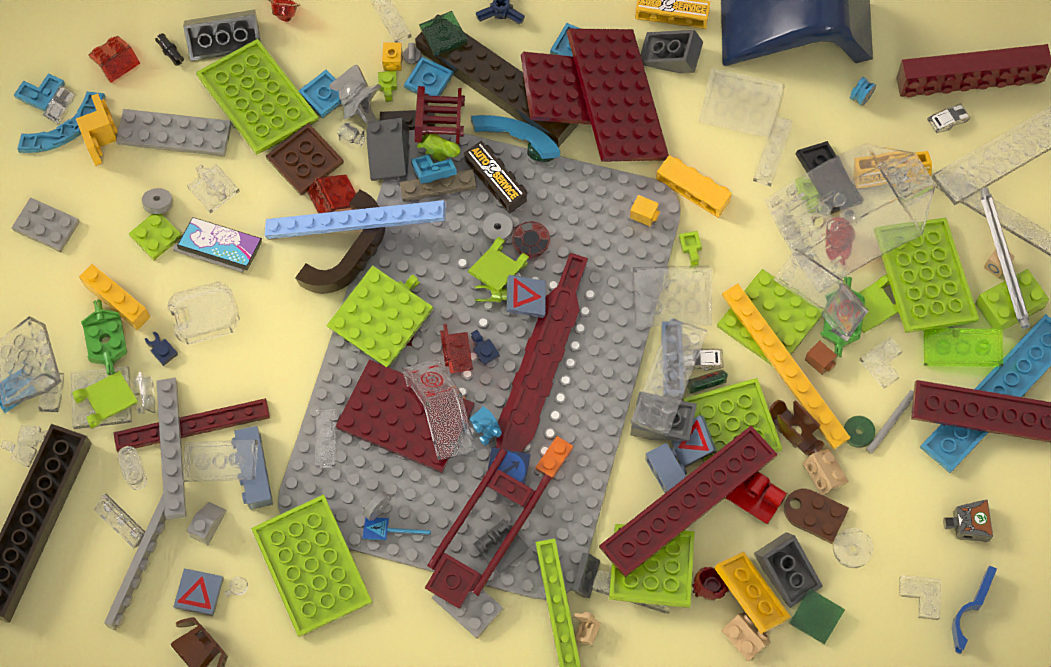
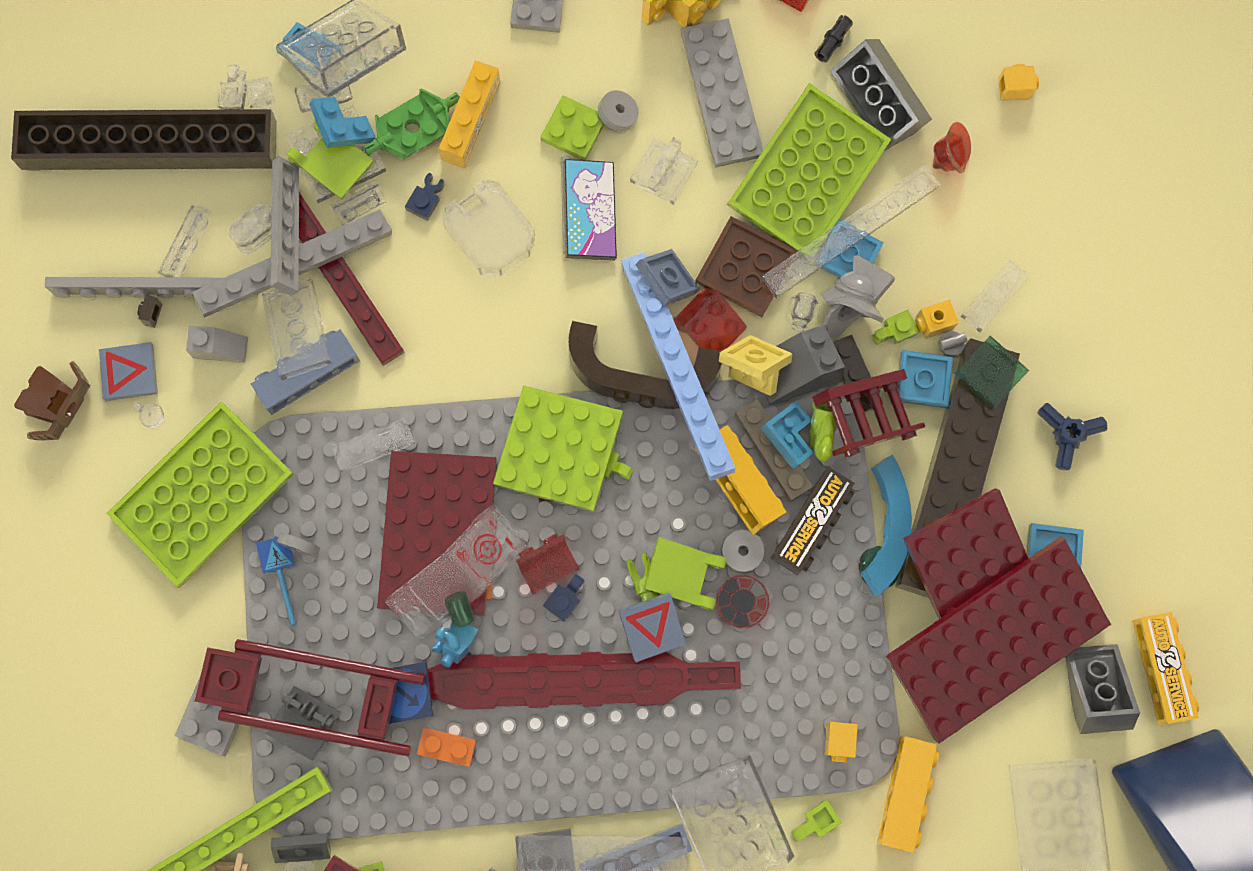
camera: 60 degrees right, 10 degrees up
(88, 383) = (335, 128): none -> dark azure plate
(146, 440) = (285, 226): none -> light grey plate
(160, 561) = (149, 310): none -> dark brown plate
(290, 208) = (667, 277): none -> sand blue tile
(311, 85) = (850, 231): none -> clear plate
(376, 173) = (755, 363): none -> light yellow bracket
(459, 209) = (748, 488): none -> yellow brick
(466, 409) = (459, 609): none -> clear green piece

